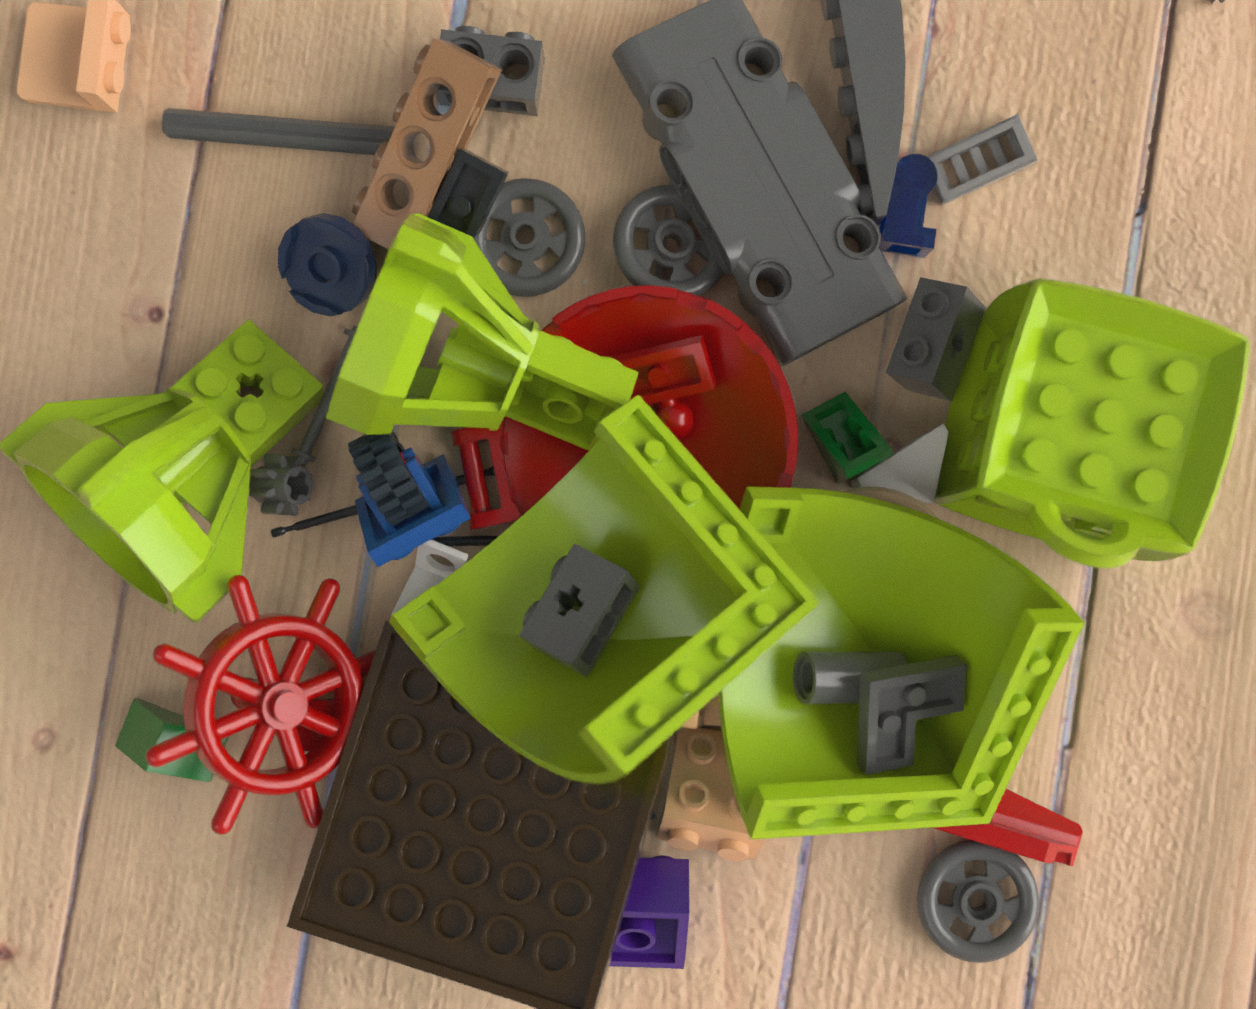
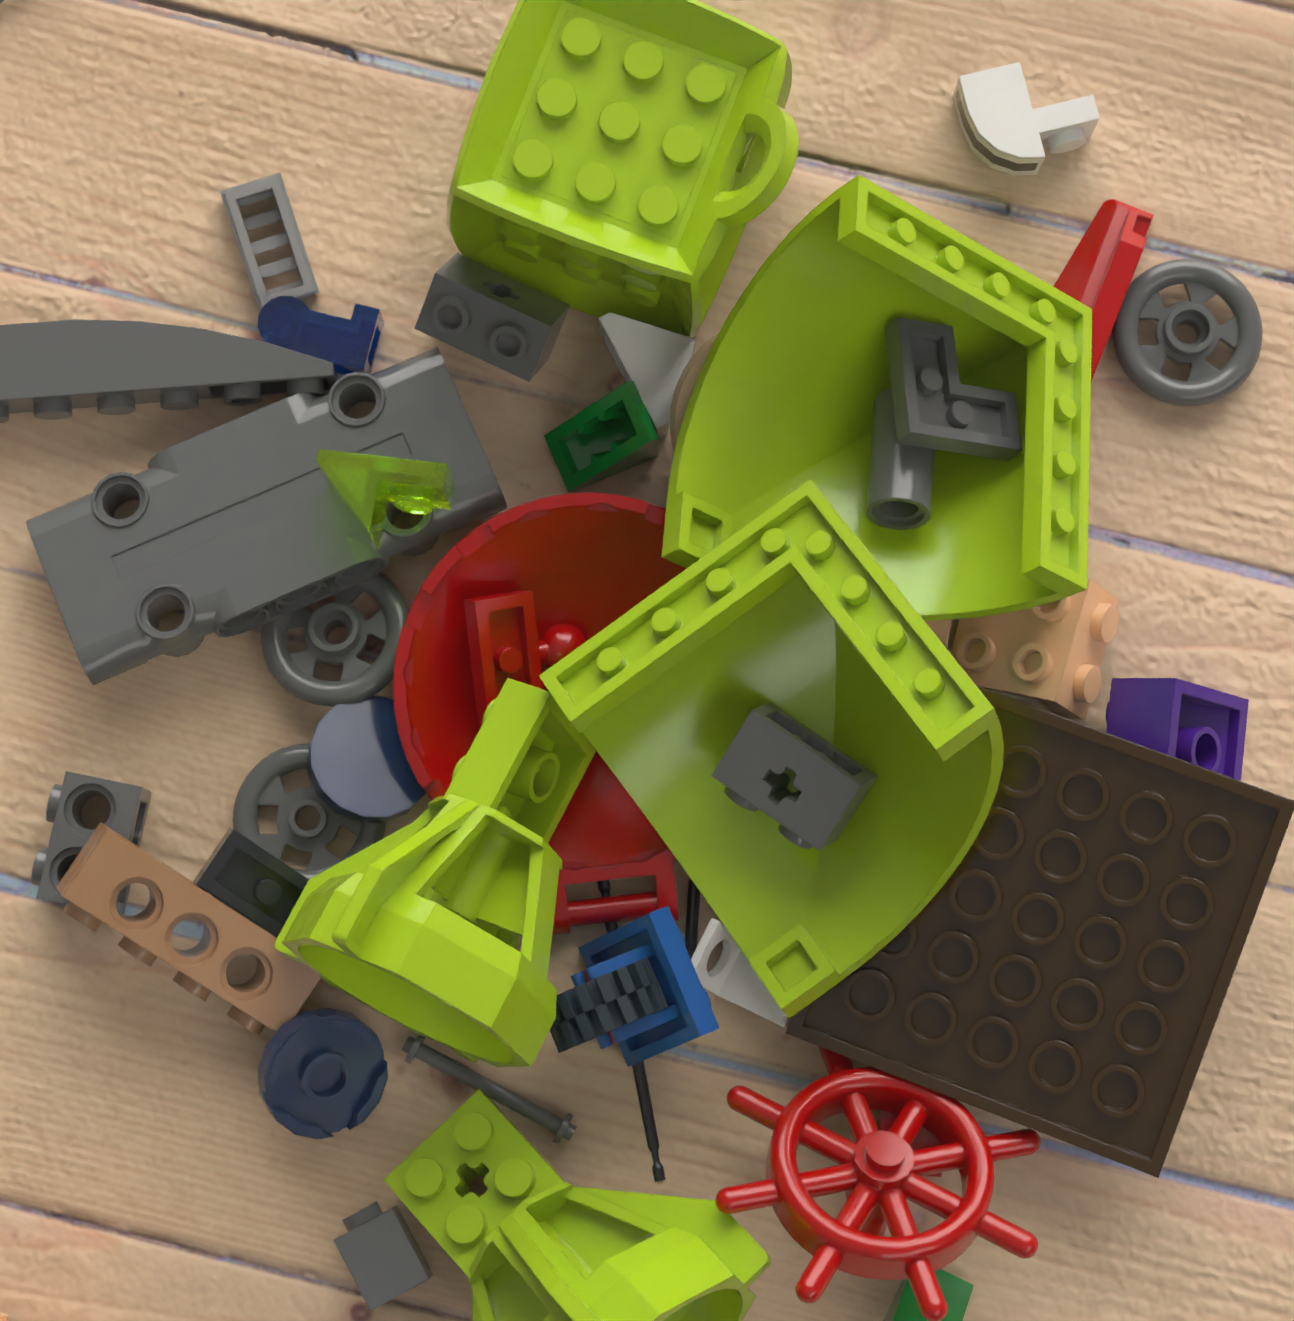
camera: 85 degrees left, 5 degrees down
(193, 324) = (381, 1254): none -> dark grey brick
(274, 131) = (139, 1124): dark grey axle -> none
(281, 484) = (601, 1153): dark grey gear -> none
(569, 269) = (361, 763): none -> tile
(788, 250) = (371, 481): none -> clear neon green slope
(1130, 745) = (1005, 127): none -> white brick

